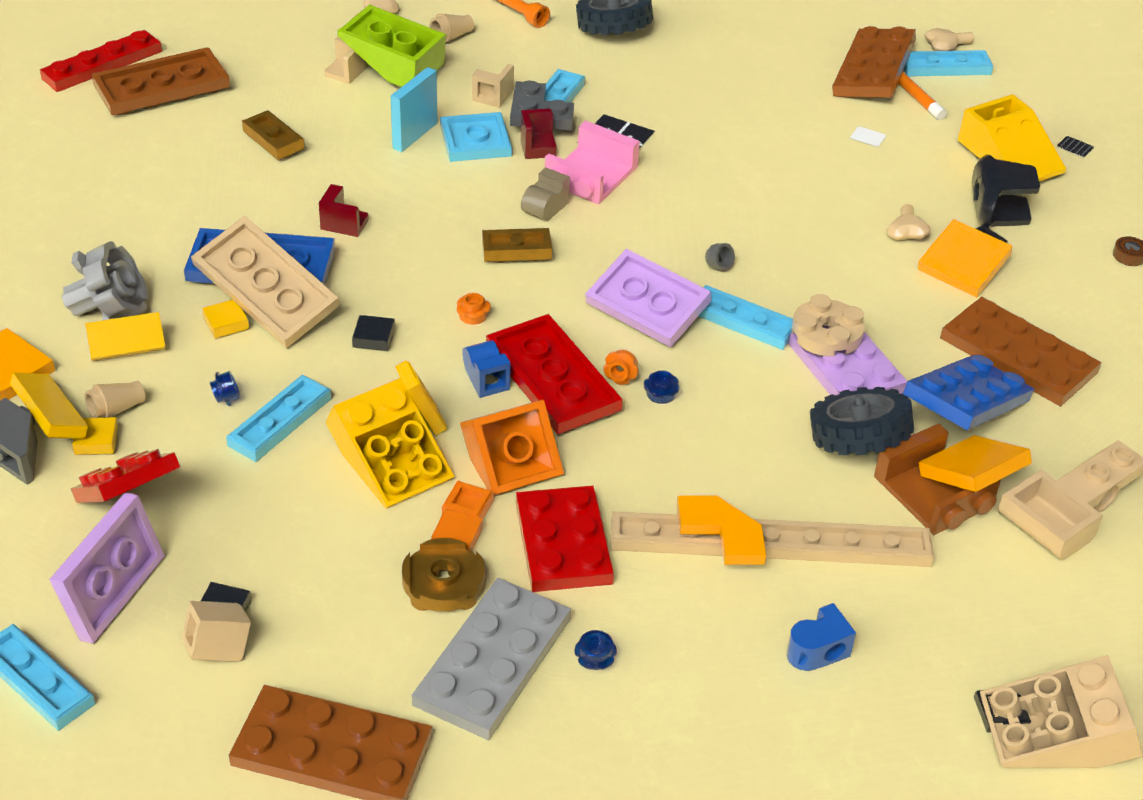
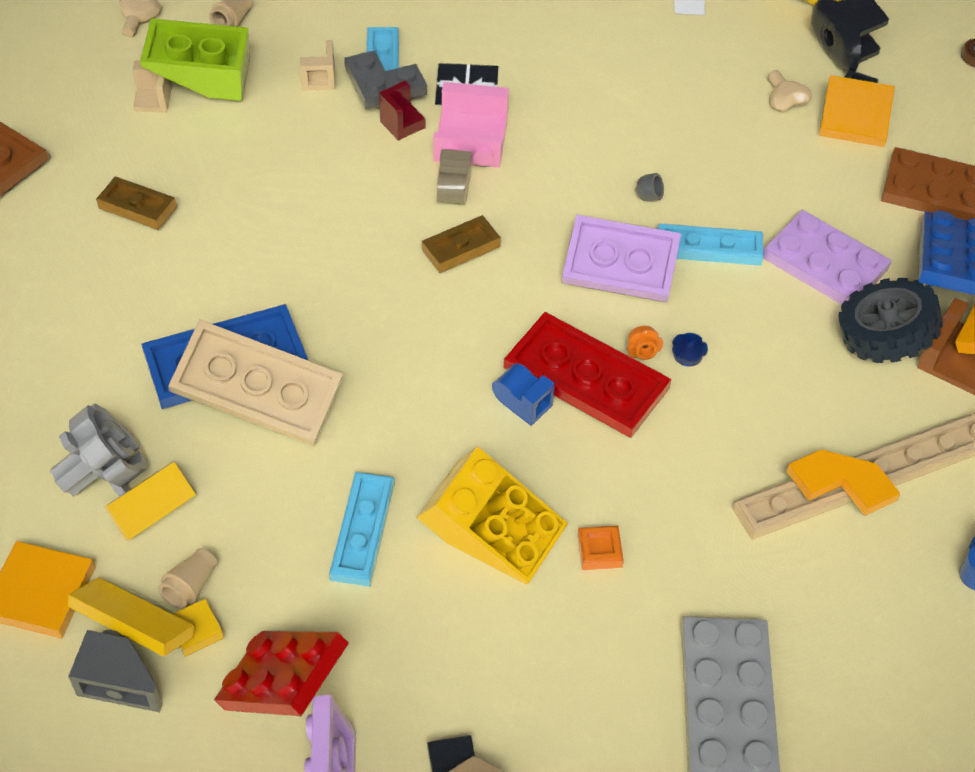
camera: 25 degrees left, 10 degrees up
(225, 318) = (232, 437): yellow tile -> none
(225, 388) = (291, 518): clear blue plate -> none
(340, 217) = (271, 275): dark red panel -> none
(373, 332) = (389, 395): black tile -> none
(414, 109) = (270, 126): medium azure tile -> none
(421, 397) = (500, 453): yellow tile -> none
(448, 593) = (631, 658): pearl gold plate -> none
(459, 527) = (612, 583): orange tile -> none
(473, 308) = (465, 337): orange plate -> none
(475, 136) = (336, 132): medium azure tile -> none
(513, 447) = (606, 471): orange slope -> none
(563, 539) = (708, 547): red plate -> none
(595, 642) = (815, 644): clear blue plate -> none
(844, 324) = (812, 218): tan plate -> none

